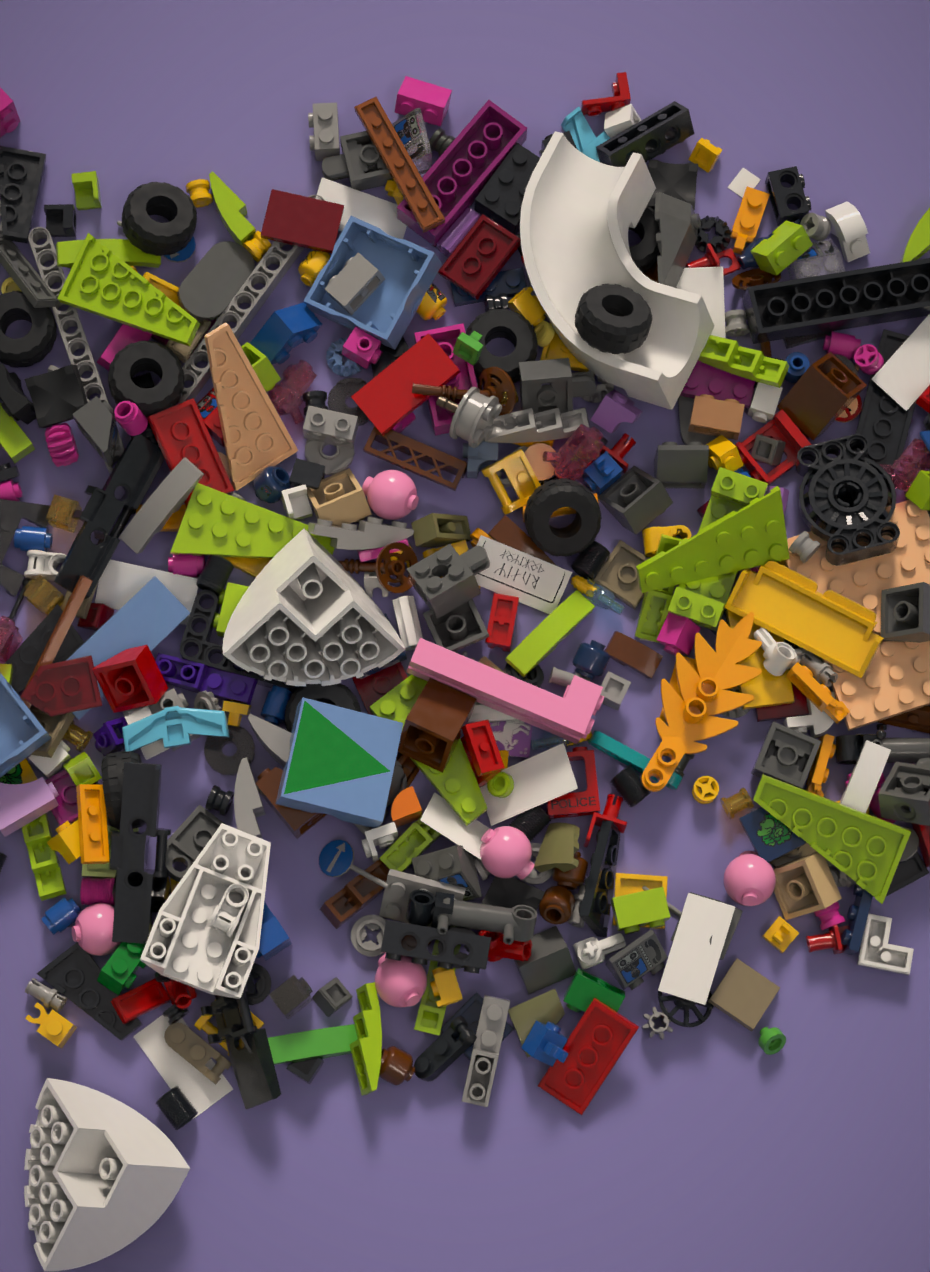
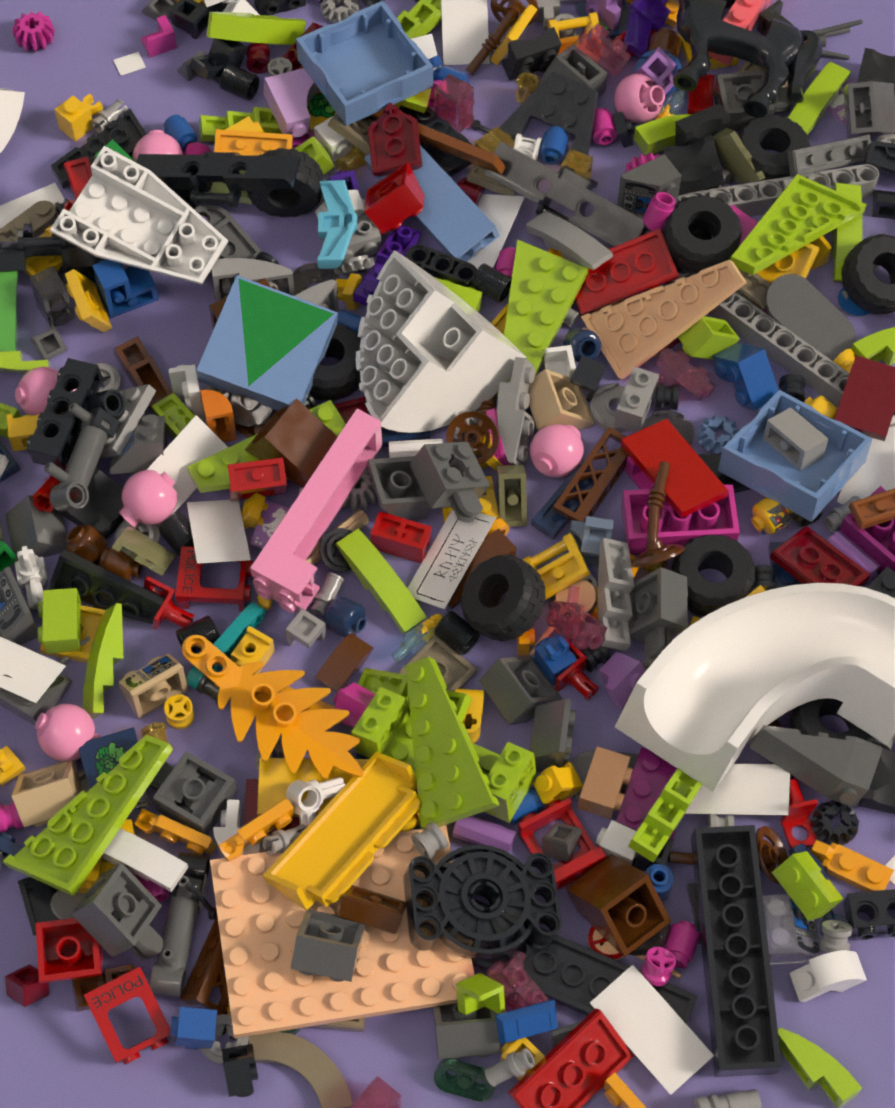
camera: 100 degrees right, 15 degrees down
(40, 358) = (735, 157): none -> olive slope
(228, 913) = (137, 232): white piece -> none
(286, 962) = (88, 301): none -> yellow plate
(292, 294) = (793, 386): none -> black wheel
(338, 858) = (174, 358): blue piece -> none
(362, 348) = (718, 436): dark pink brick -> none
(411, 236) = (837, 515): none -> light grey pin
(460, 498) = (551, 522): none -> dark blue plate
(468, 347) = (709, 528): bright green tile -> none
(472, 416) = (623, 511): light grey wheel -> none
(501, 785) = (225, 510): lime tile -> none
(613, 318) = (701, 665): black tyre -> none
(629, 737) = (256, 641): none -> yellow brick
(667, 866) = (104, 653): none -> lime slope
(686, 815) = (153, 684): none -> tan slope
(871, 583) = (372, 909): none -> reddish brown slope

